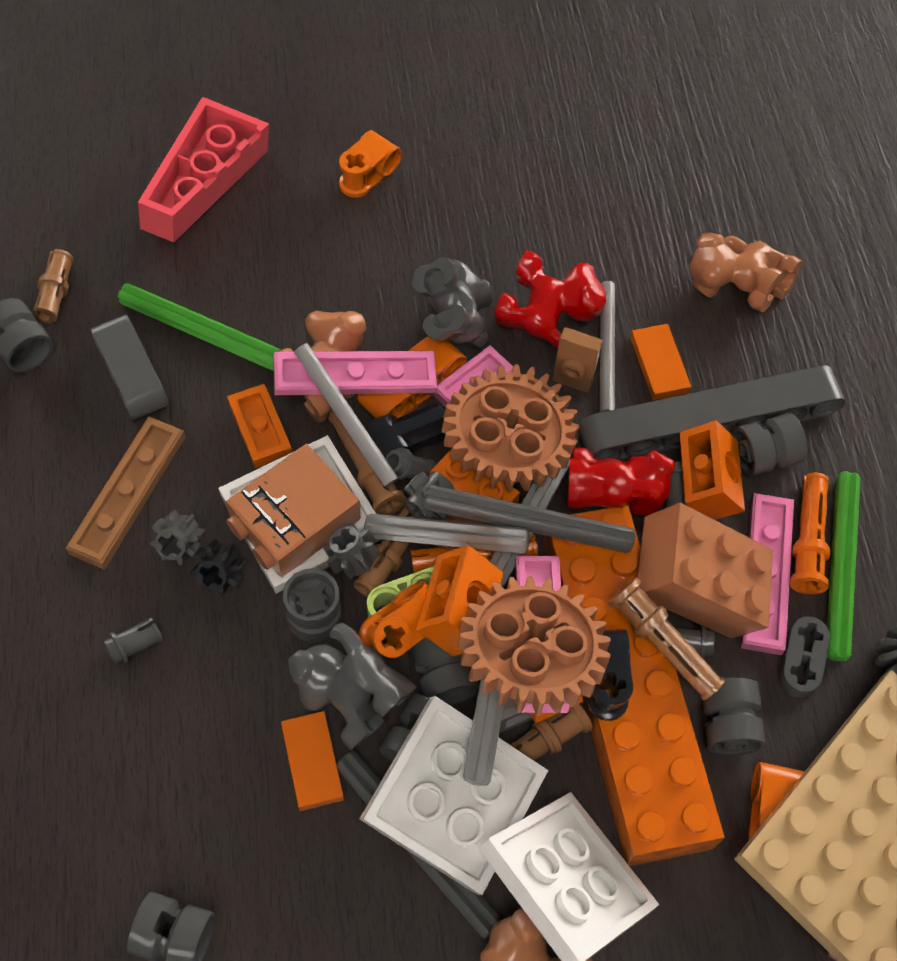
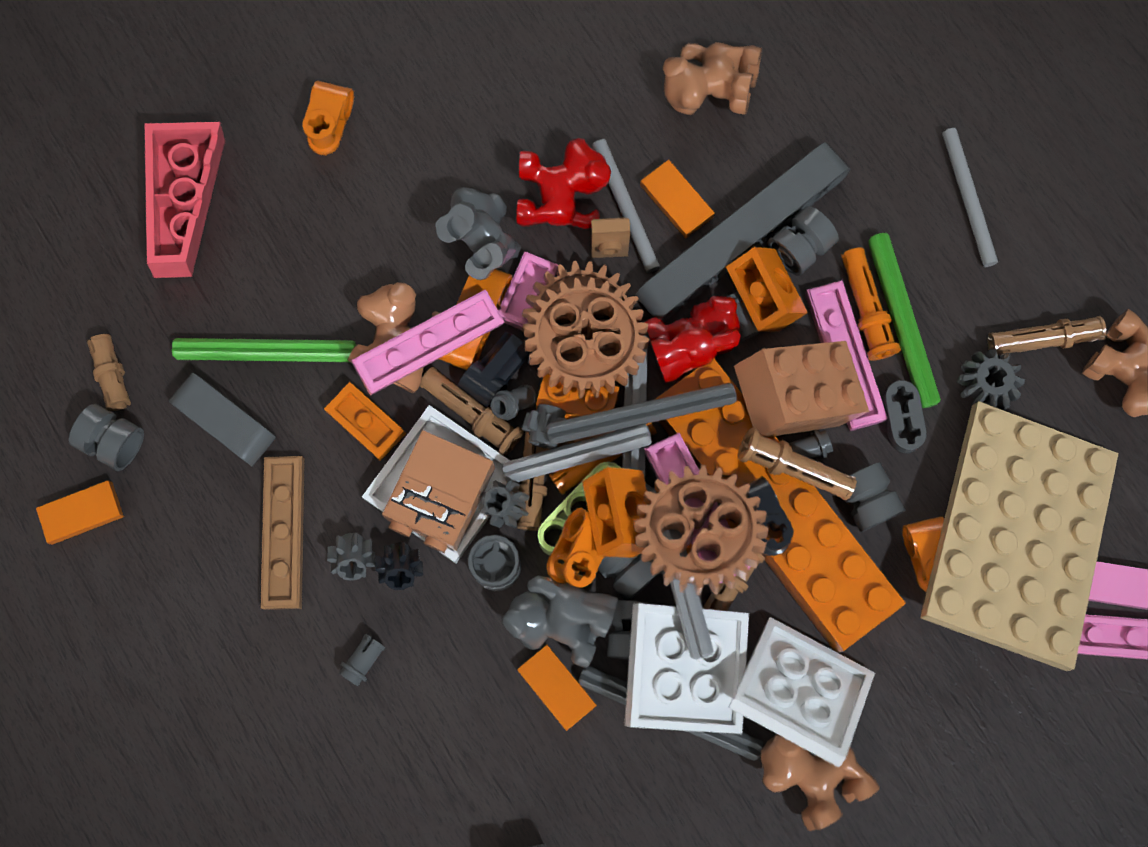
camera: 20 degrees left, 15 degrees up
(346, 415) = (441, 387): light grey bar -> none

